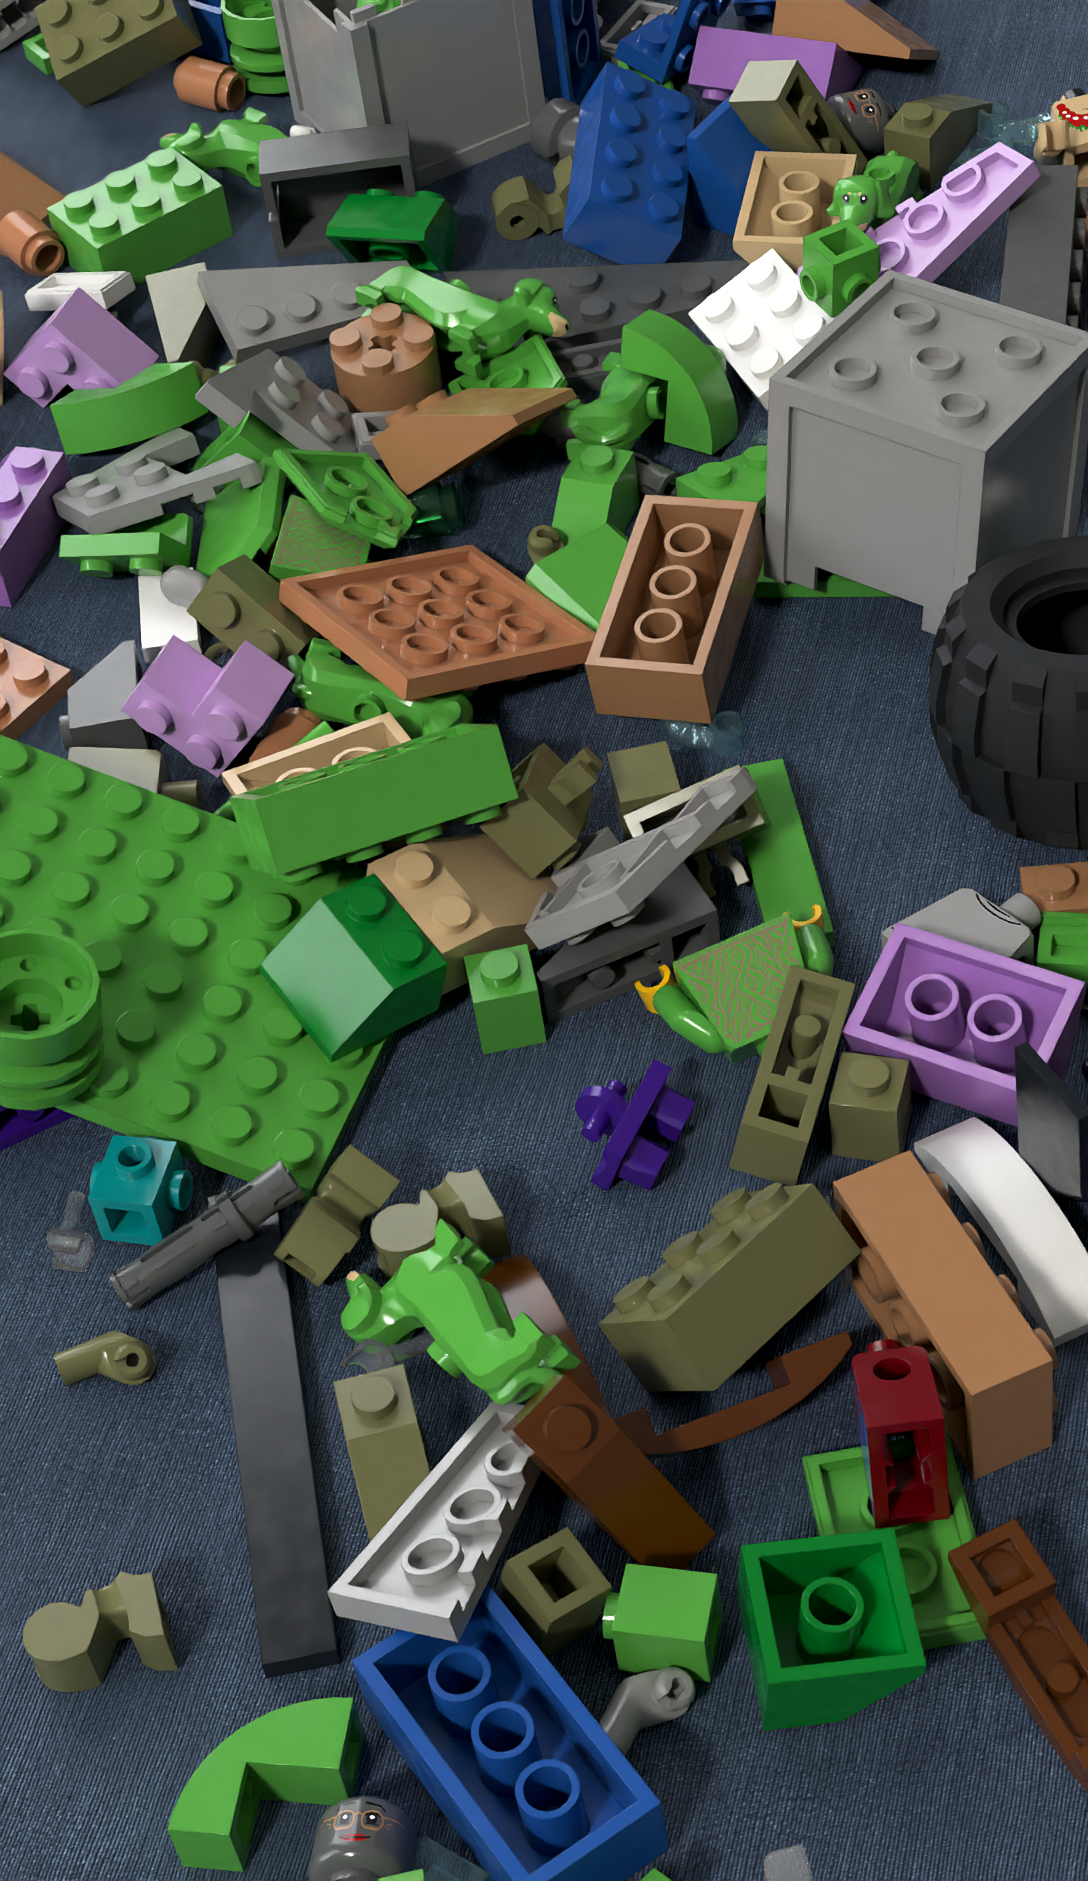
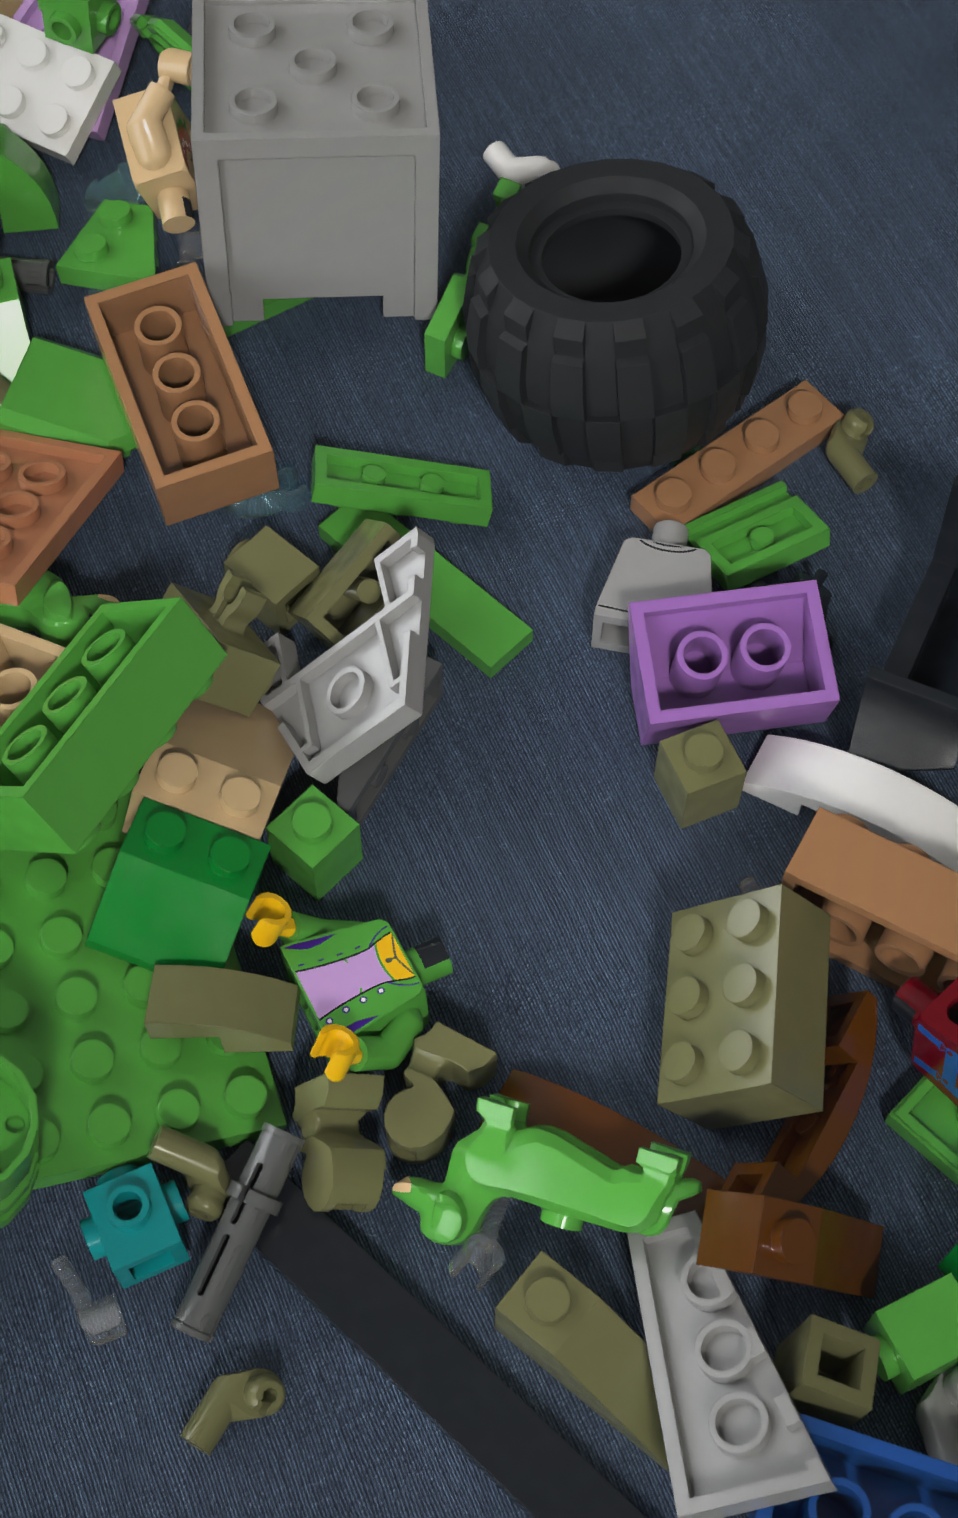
camera: 45 degrees left, 15 degrees up
(212, 1162) = (202, 1169): none -> olive arm
(328, 1069) = (237, 1006): none -> olive slope
(437, 1111) = (353, 983): none -> torso
(627, 1152) = (512, 900): dark purple hips -> none
(736, 985) = (526, 725): bright green torso -> none
(792, 1076) = (632, 786): olive slope -> none
(813, 766) = (401, 486): none -> bright green plate

